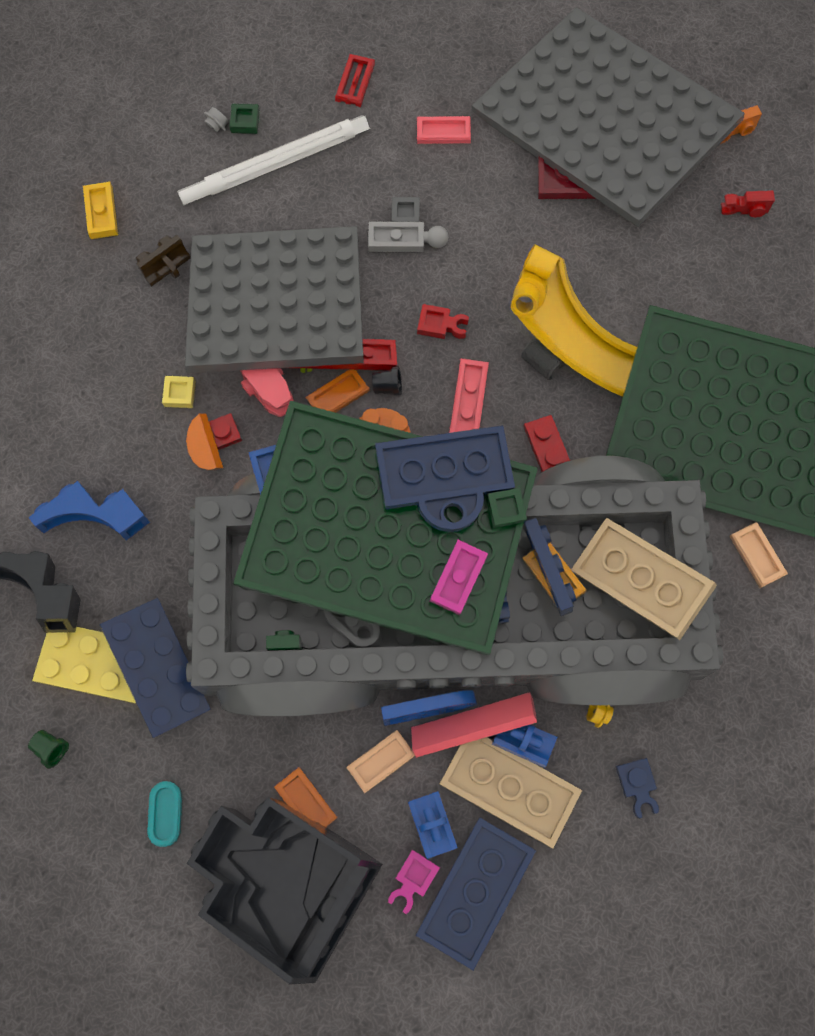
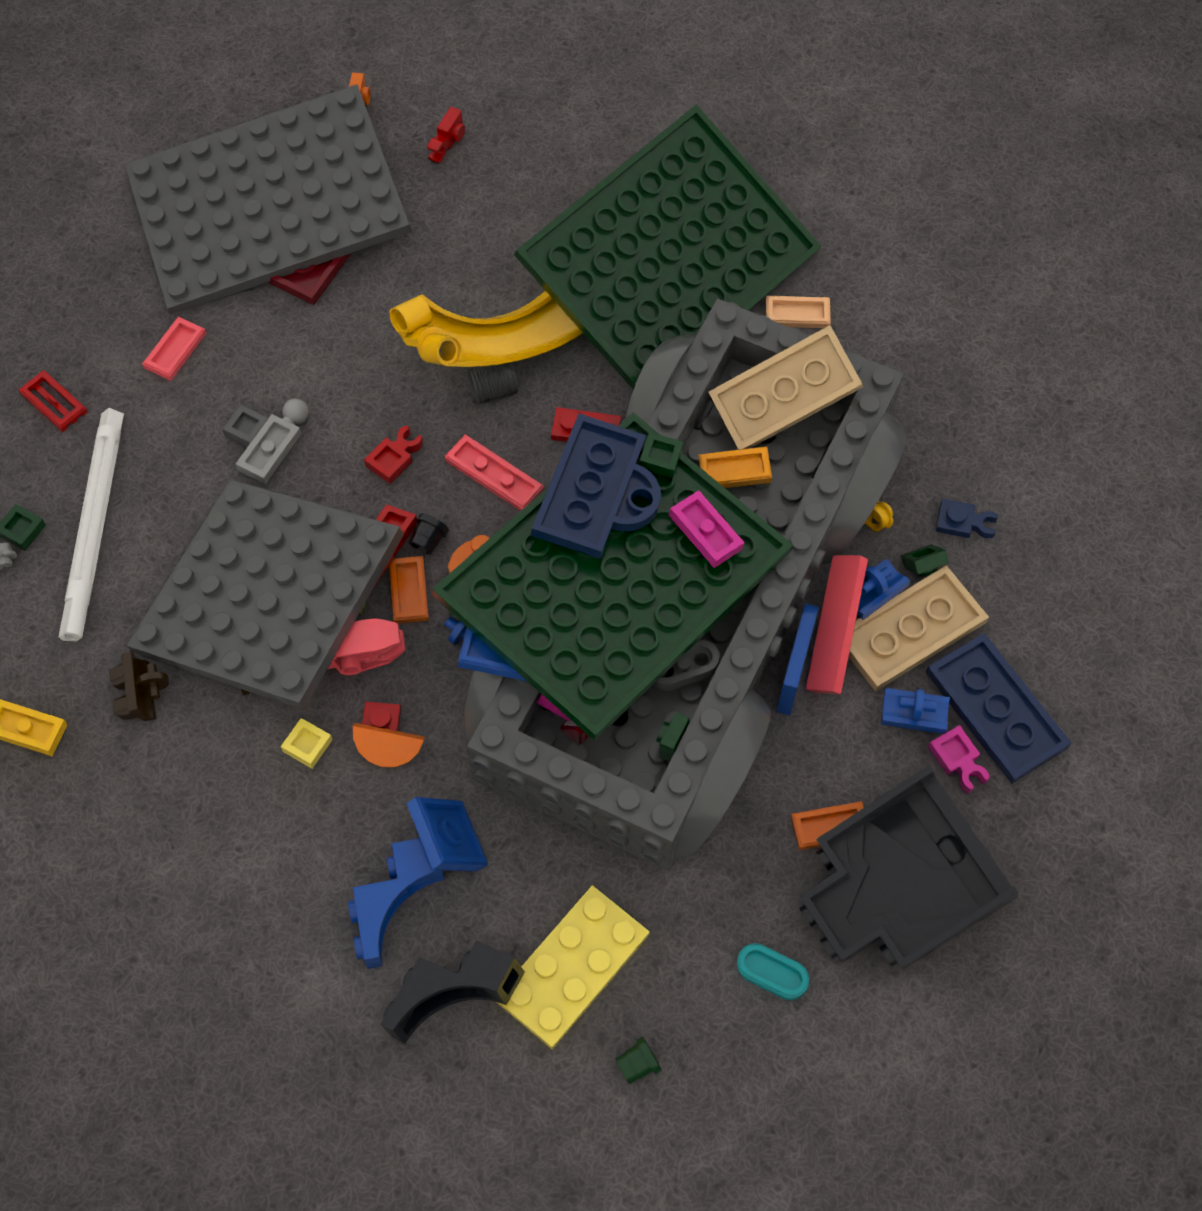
camera: 65 degrees left, 10 degrees down
(149, 523) = (447, 834): none -> blue tile
(154, 667) = (612, 902): dark blue plate -> none
(380, 761) = (825, 734): light nougat tile -> none
(550, 566) = (736, 461): dark blue plate -> none
(578, 769) = (925, 560): none -> dark green plate

